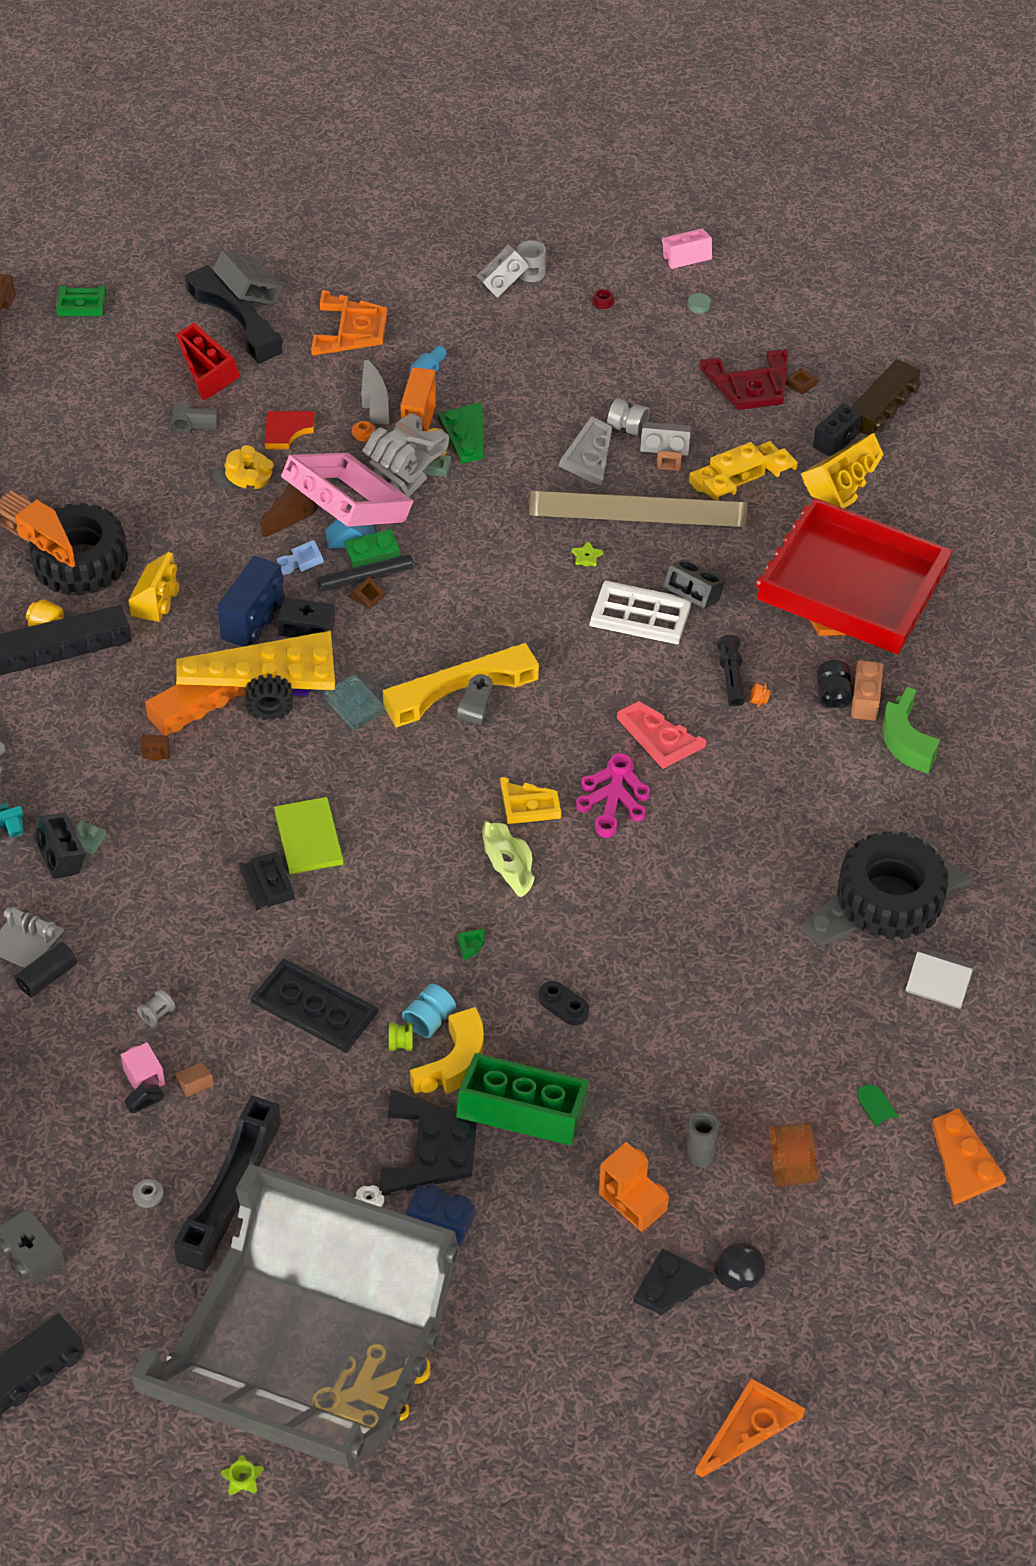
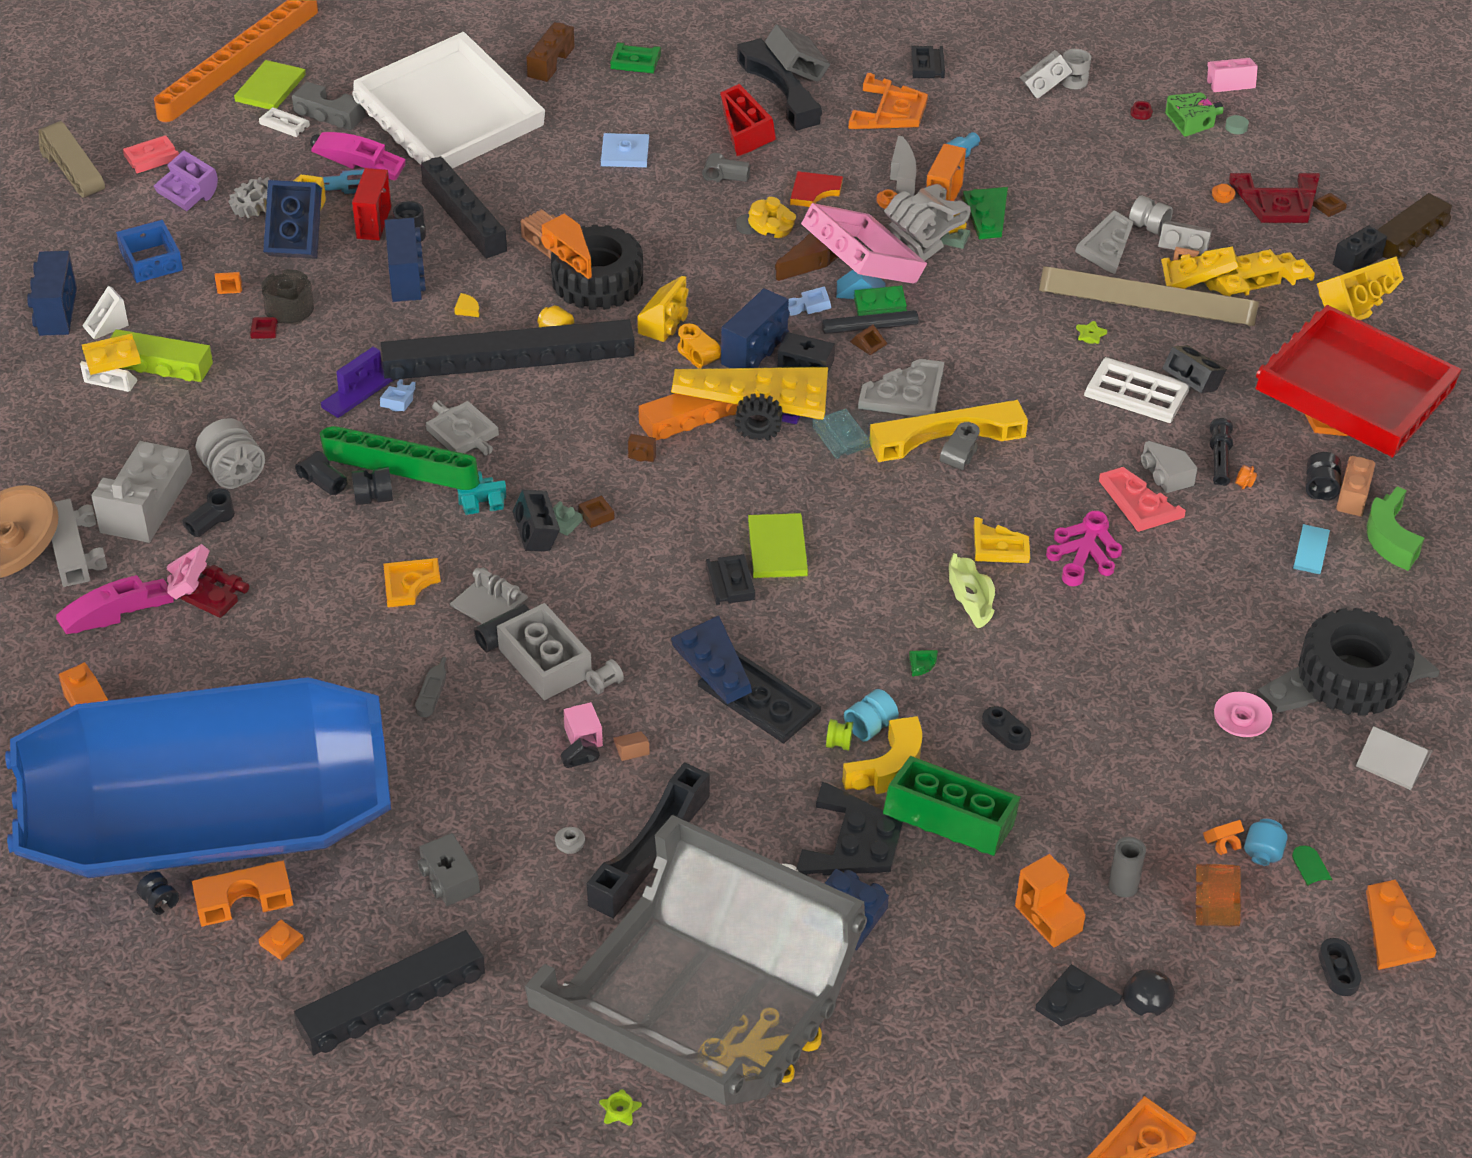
camera: 10 degrees right, 5 degrees down
(86, 408) = (625, 150): none -> light blue plate
(90, 990) = (544, 651): none -> light grey brick
(119, 824) = (596, 511): none -> reddish brown plate
(194, 623) = (697, 346): none -> light orange piece
(262, 970) = (714, 658): none -> dark blue wing
(381, 270) = (927, 62): none -> black plate
(412, 645) = (905, 391): none -> light grey plate
(654, 295) = (1192, 112): none -> bright green torso
(679, 473) = (1198, 269): none -> yellow wing
(684, 694) = (1169, 466): none -> light grey slope
(696, 382) = (1223, 193): none -> orange plate
(790, 1085) = (1225, 833): none -> orange tile
(793, 945) = (1235, 707): none -> bright pink dish
(830, 1088) = (1266, 842): none -> dark azure head
(833, 764) = (1311, 549): none -> medium azure slope
(919, 1211) = (1338, 969): none -> black plate

